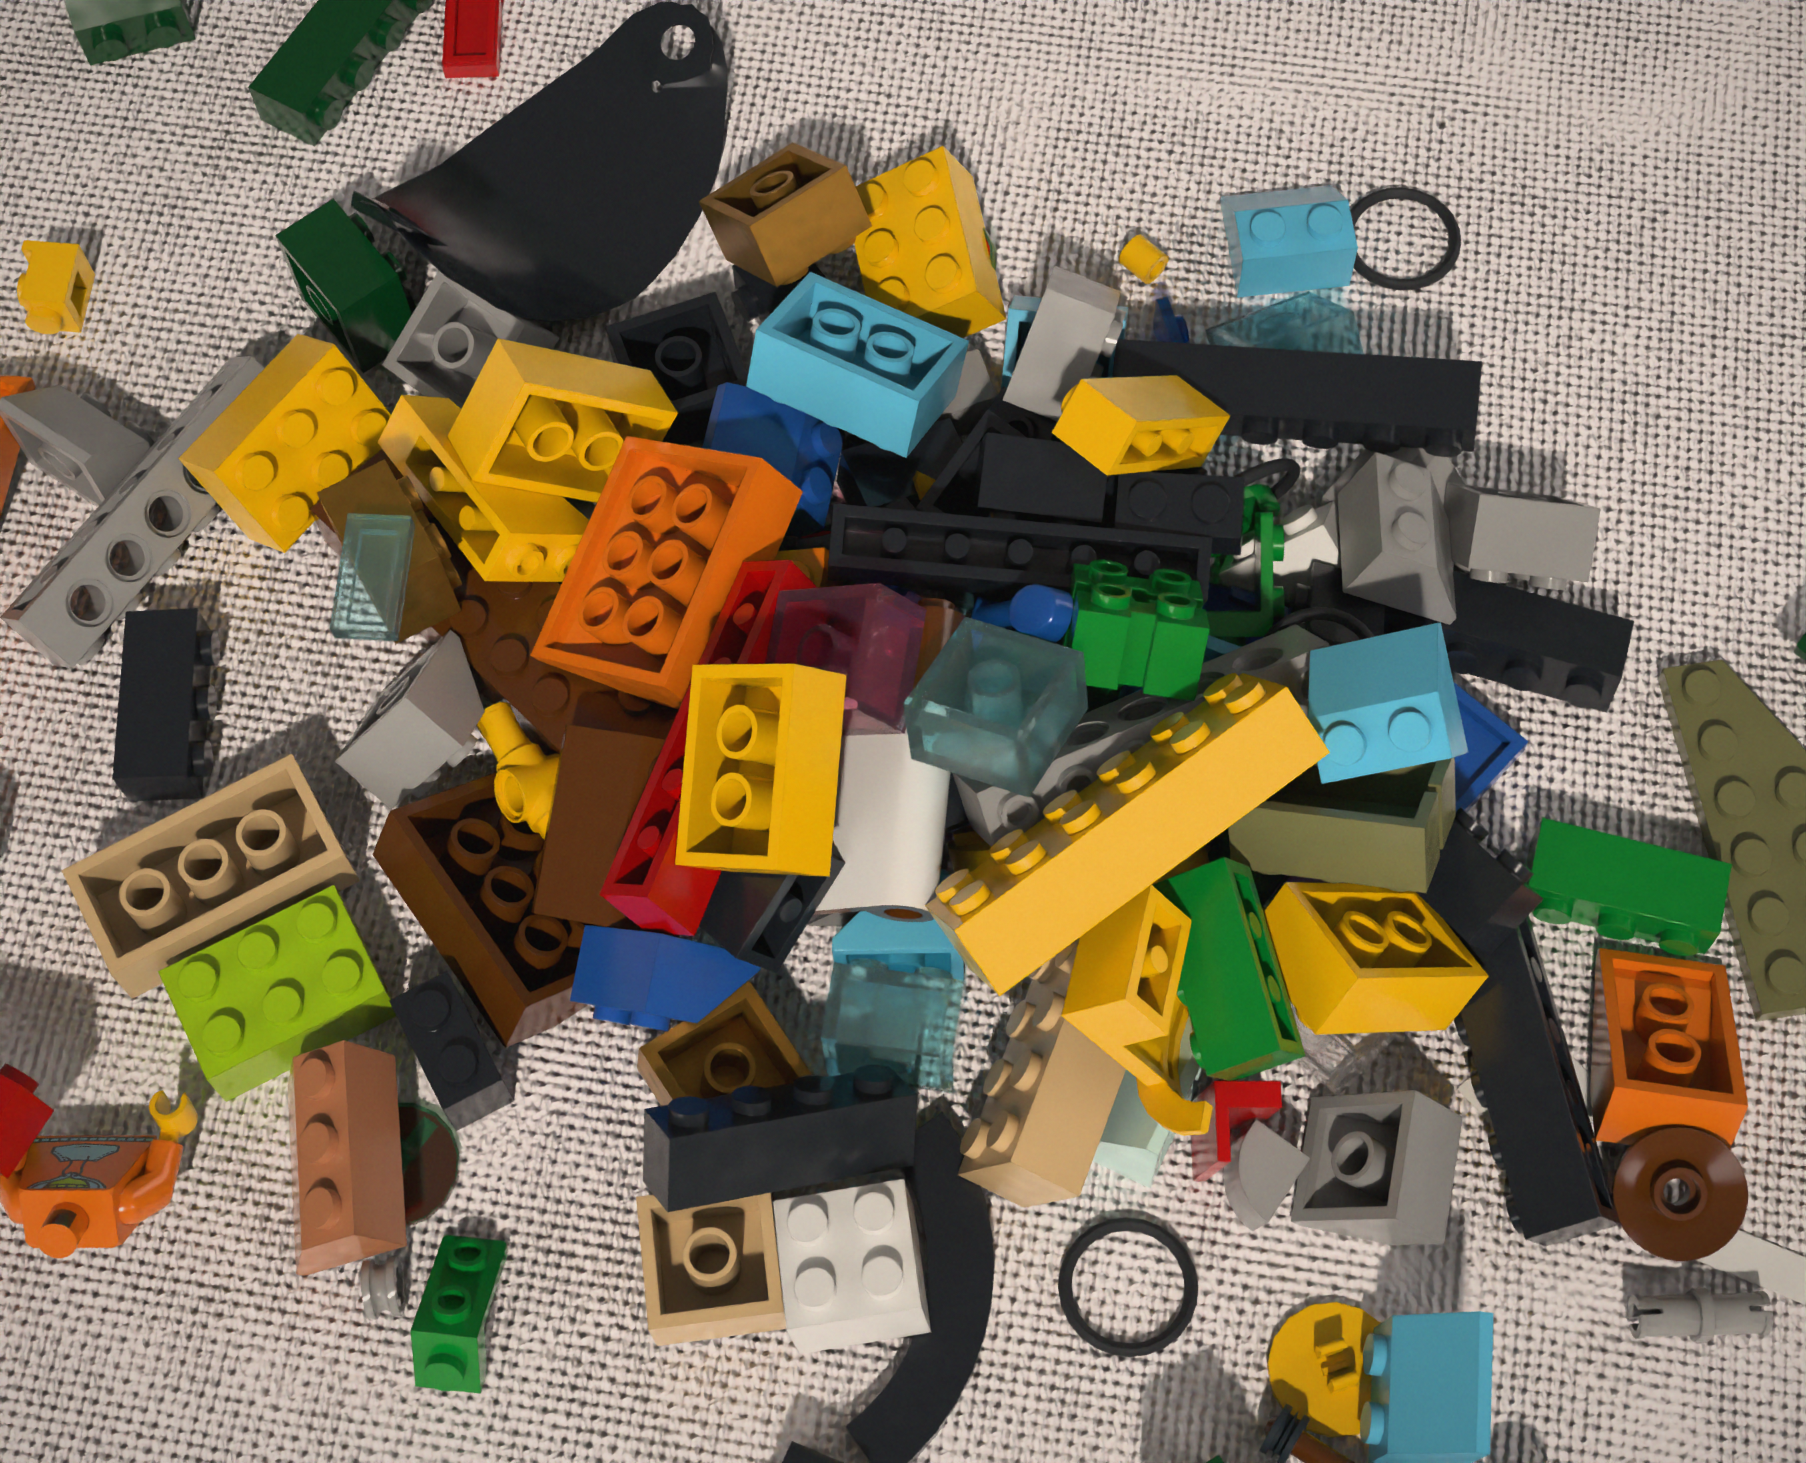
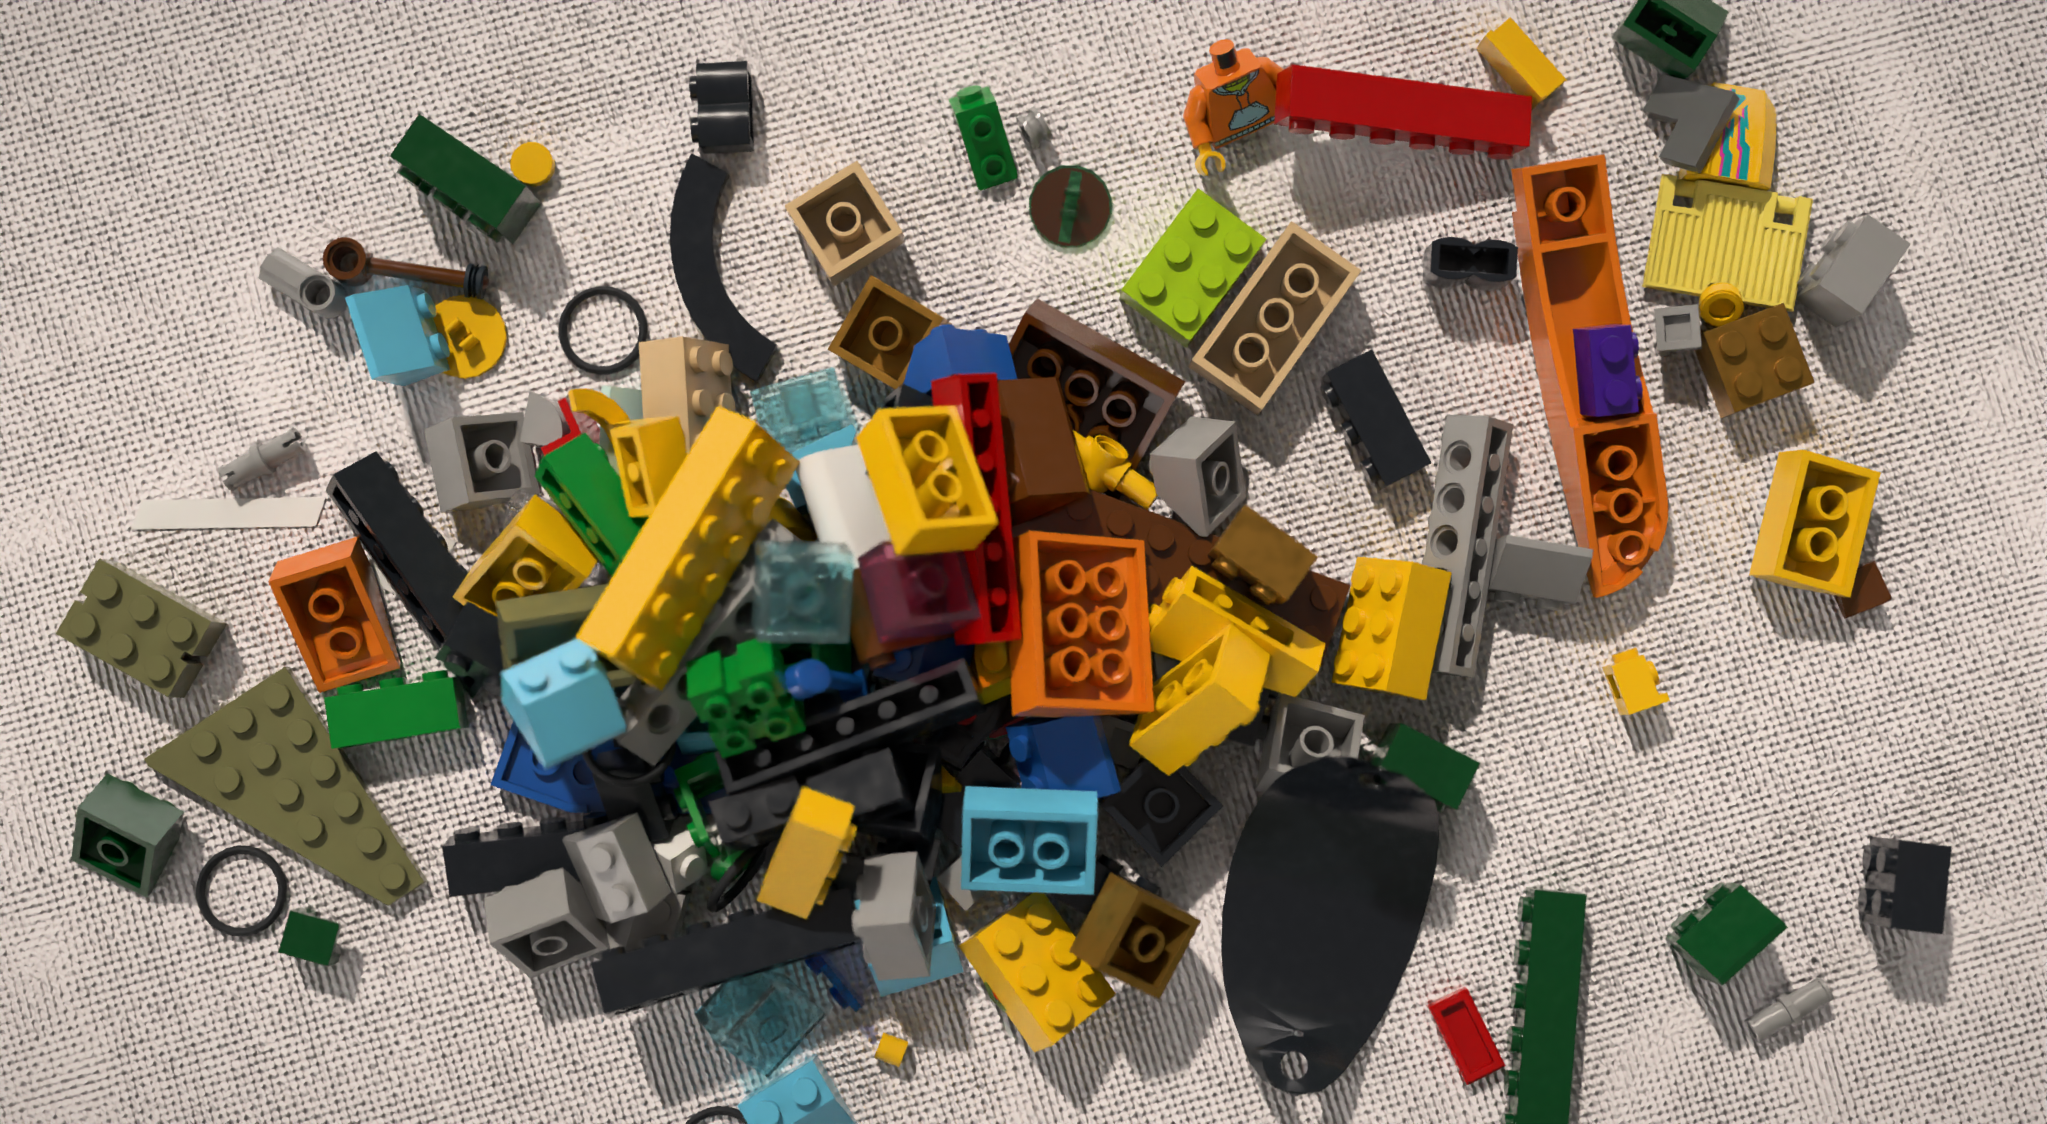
camera: 150 degrees right, 20 degrees up
(345, 1156) = (1092, 183): nougat slope -> none
(372, 577) = (1245, 509): clear light blue tile -> none
(451, 1051) = (1067, 280): black brick -> none
(778, 1137) = (832, 300): black brick -> none
(850, 1266) = (762, 256): white brick -> none
(1712, 1200) = (289, 510): reddish brown dish -> none

